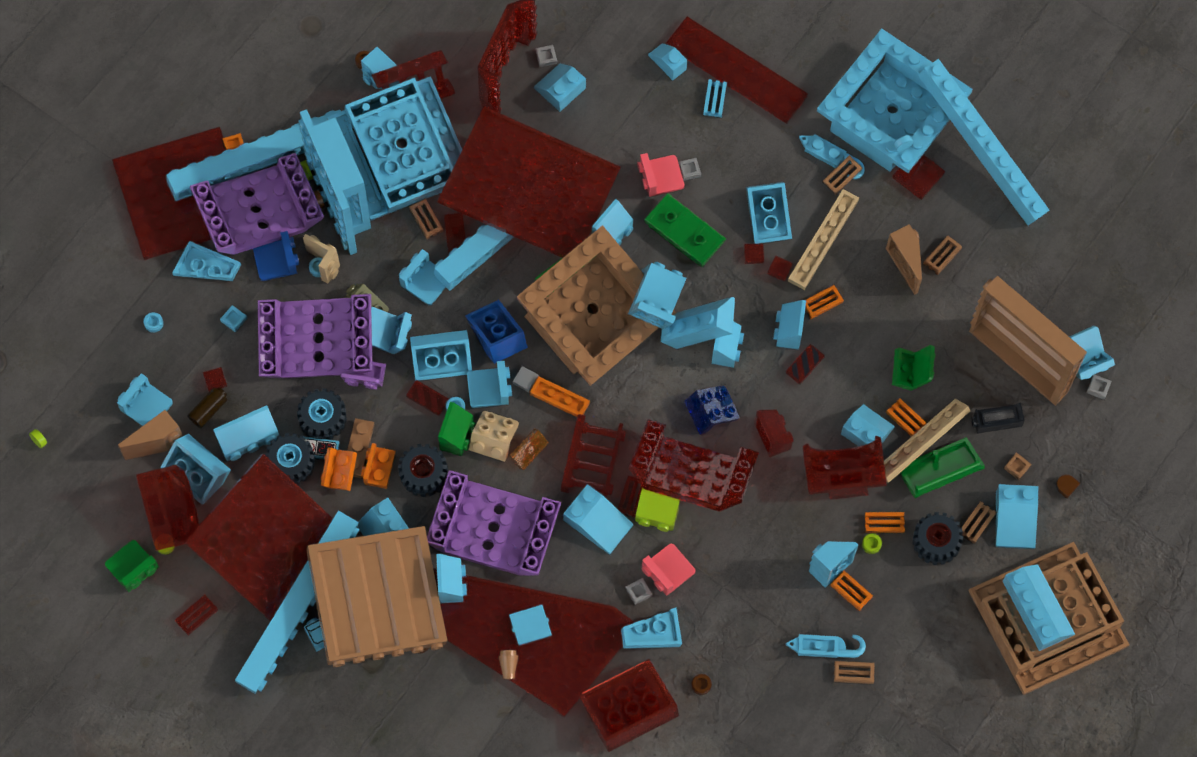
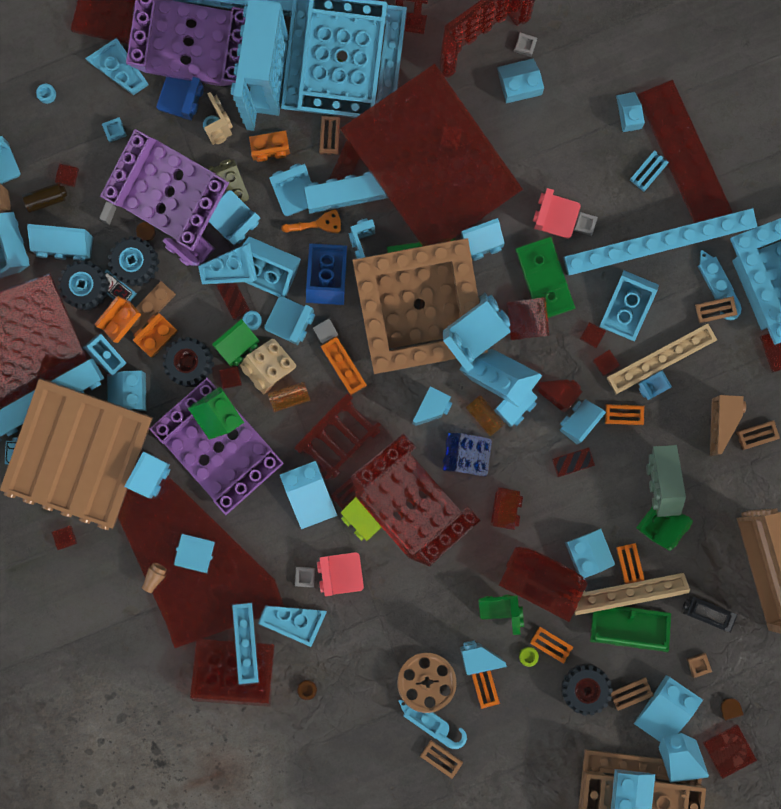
camera: 40 degrees right, 15 degrees up
(272, 388) = (107, 213): none -> light grey tile
(314, 383) = (145, 231): none -> reddish brown tile
(345, 502) = (104, 354): none -> medium azure slope
(379, 256) = (269, 146): none -> orange bracket
(406, 681) = (64, 537): none -> clear red plate
(410, 370) = (229, 267): none -> medium azure wing
(464, 294) = (320, 223): none -> orange piece
(467, 464) = (230, 377): none -> clear red tile
(477, 493) = (216, 414): none -> green slope
(504, 283) = (362, 229): none -> medium azure bracket
(624, 669) = (245, 643): none -> medium azure plate
(658, 383) = (433, 406): none -> medium azure slope
(695, 268) = (528, 318): none -> clear red plate
(706, 368) = (485, 415): none -> clear orange plate
(756, 311) = (560, 392): none -> clear red slope
(760, 147) = (660, 241): none -> medium azure brick
(800, 621) = (432, 675): none -> medium nougat wedge
(824, 513) = (502, 607): none -> green bracket
(832, 262) = (654, 385): none -> dark azure bracket
(891, 328) = (666, 481): none -> sand green brick
(1051, 544) = (682, 758): none -> medium azure slope
(1089, 520) = (729, 751): none -> clear red tile

